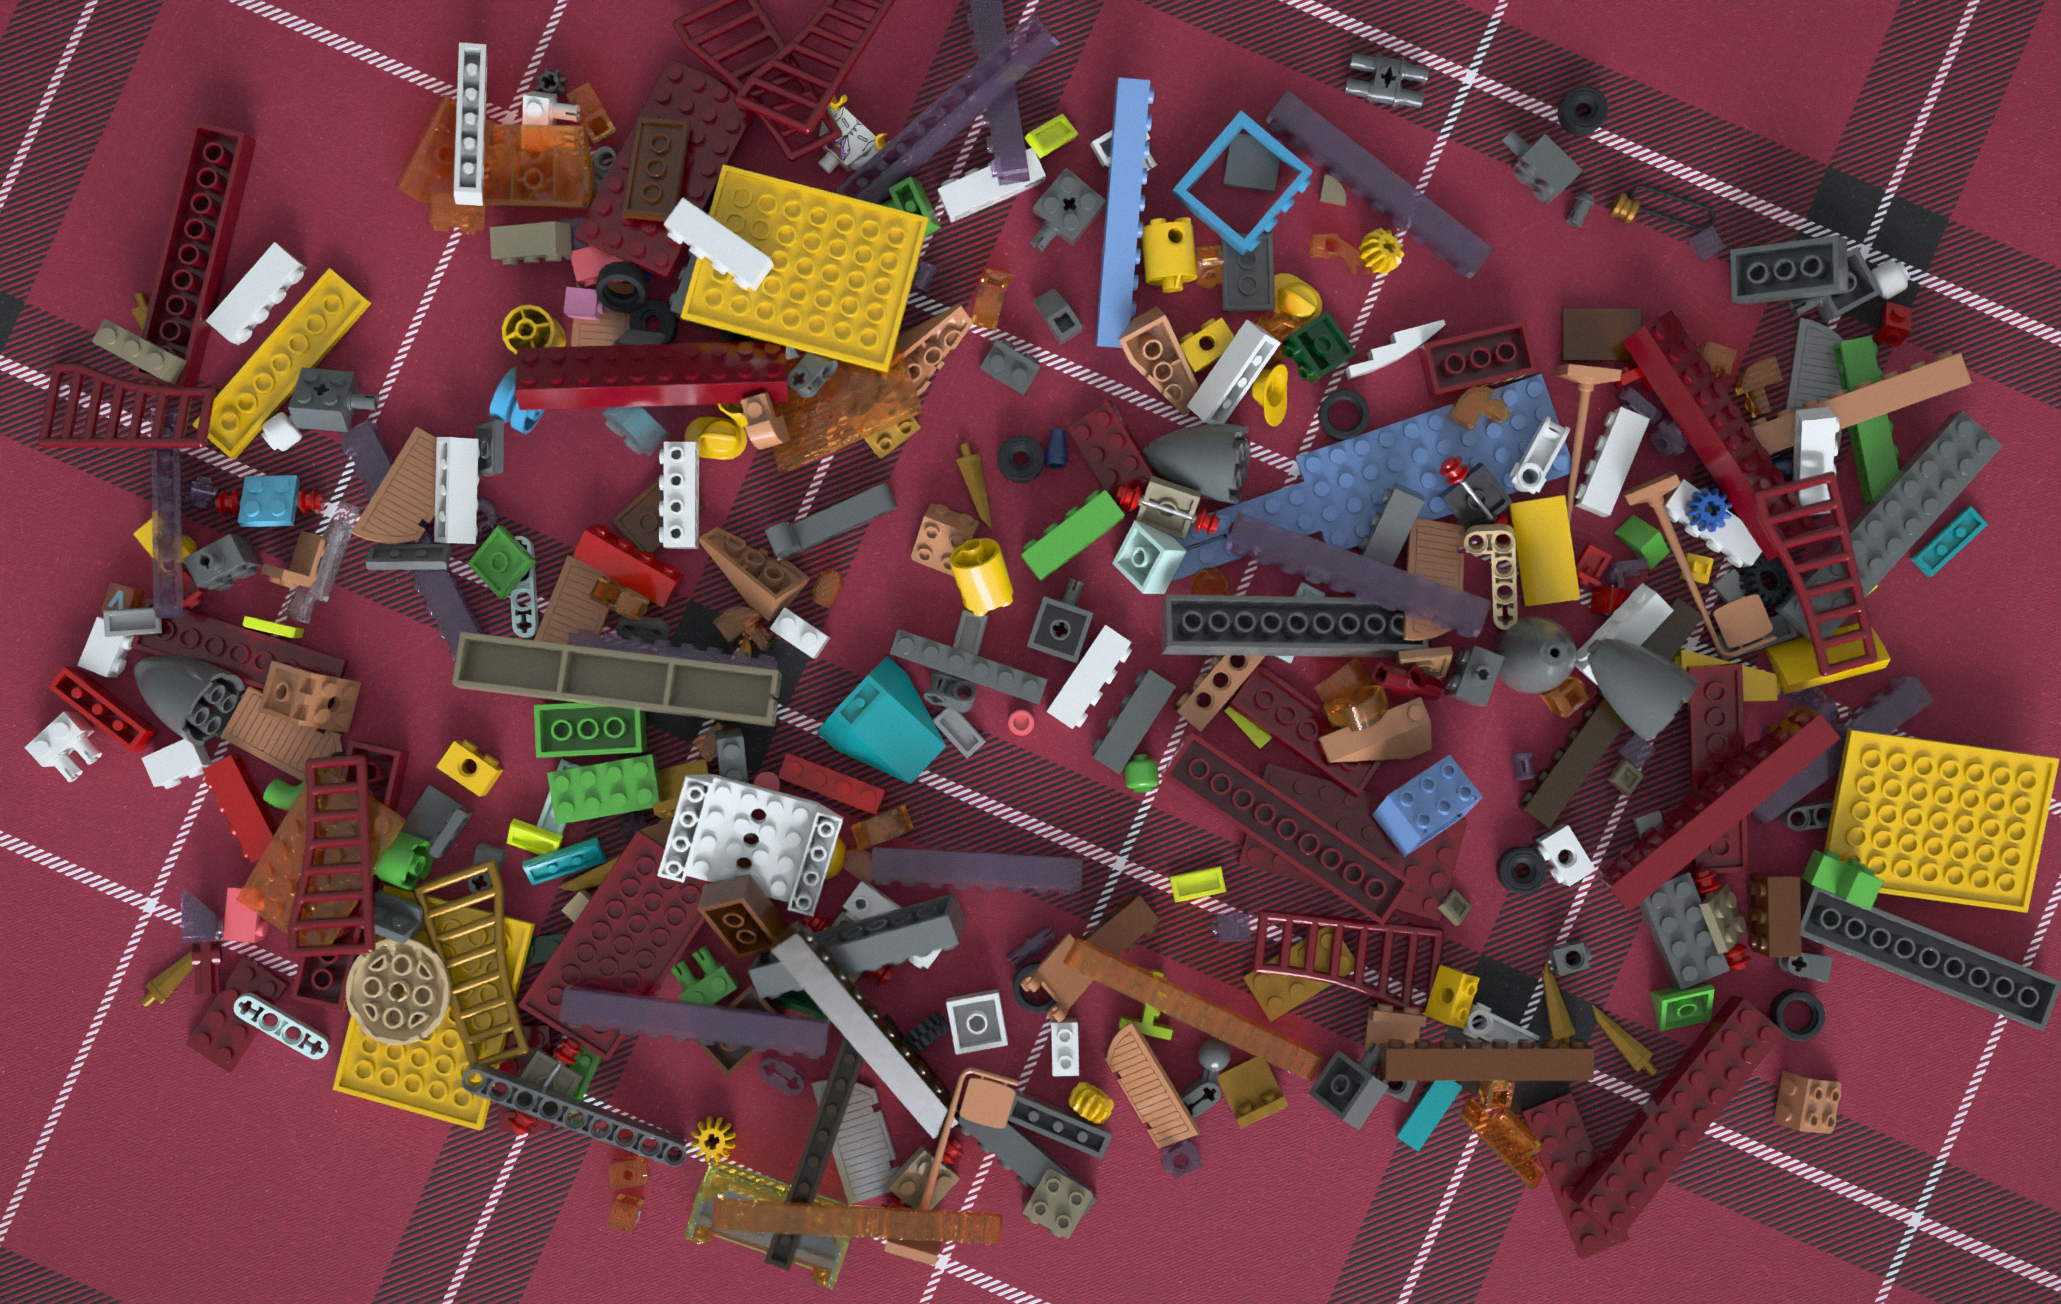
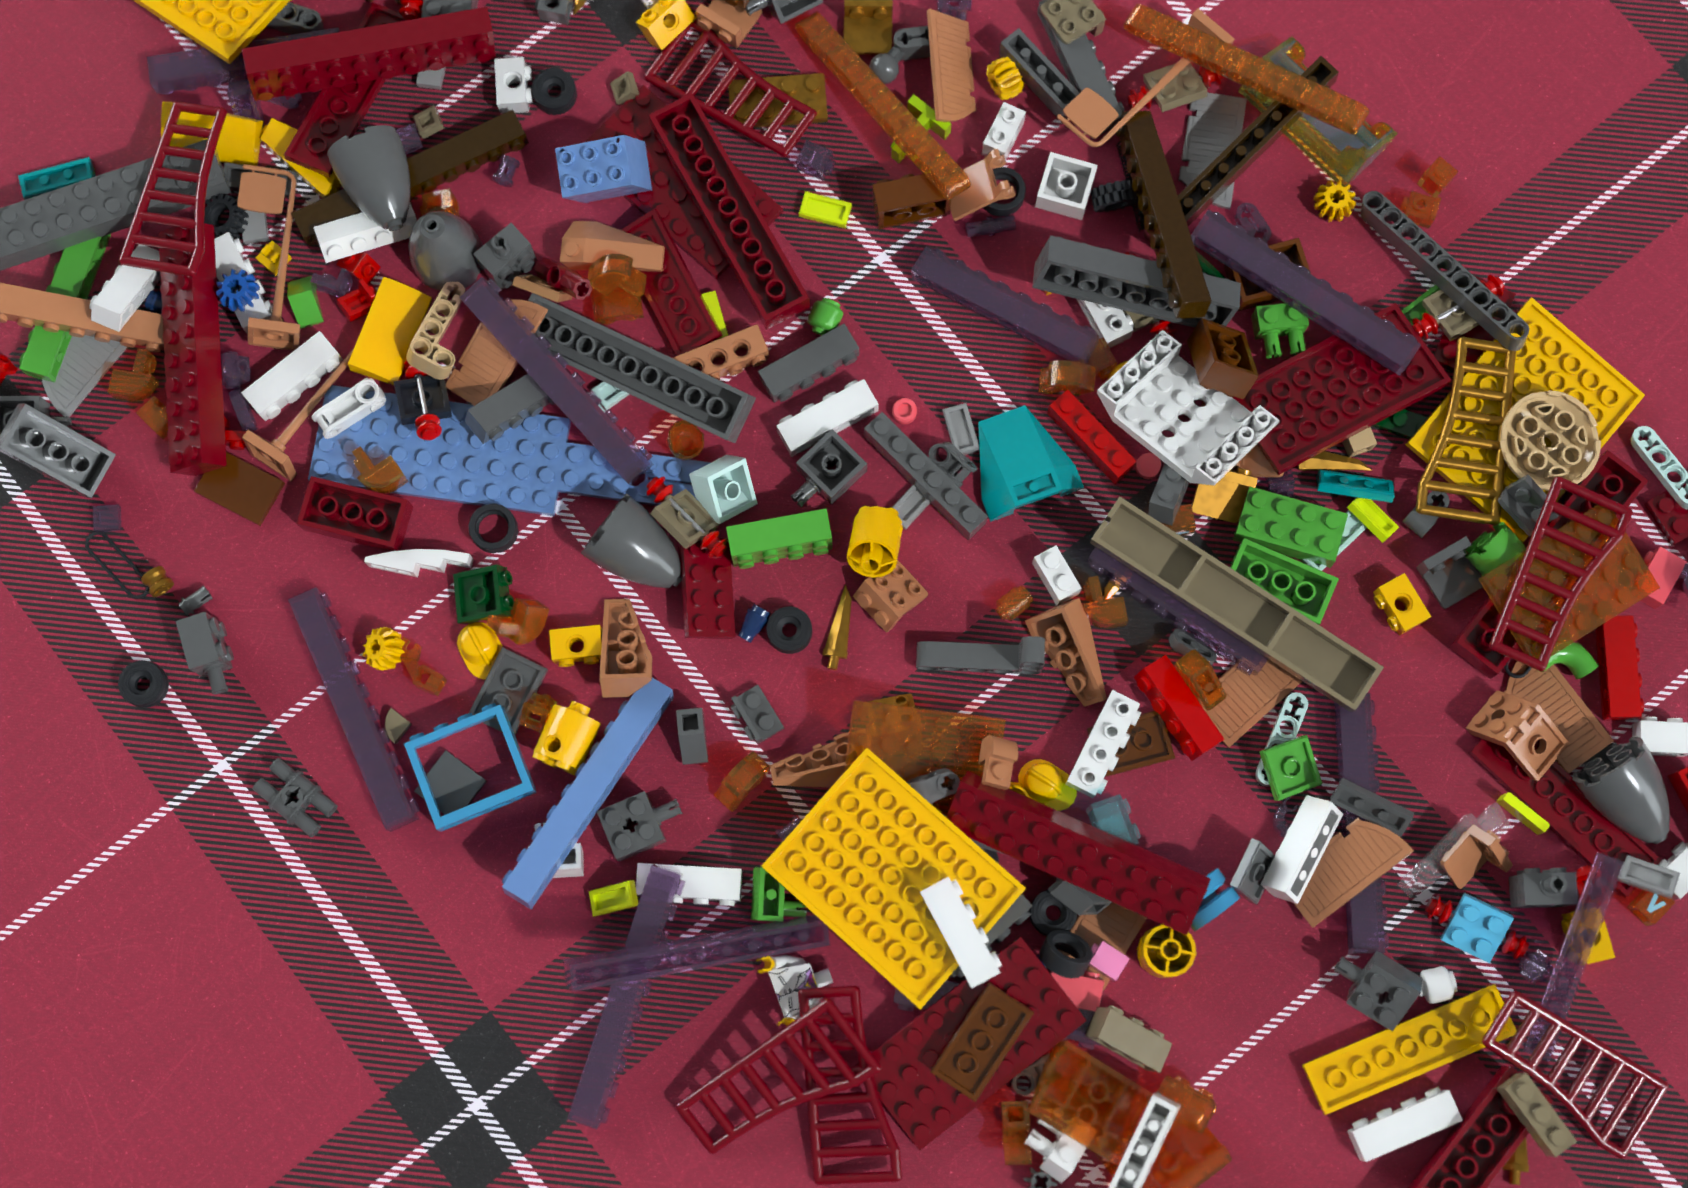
camera: 150 degrees left, 10 degrees down
(1233, 374) = (568, 604): white brick -> none
(1271, 392) = (545, 577): yellow piece -> none

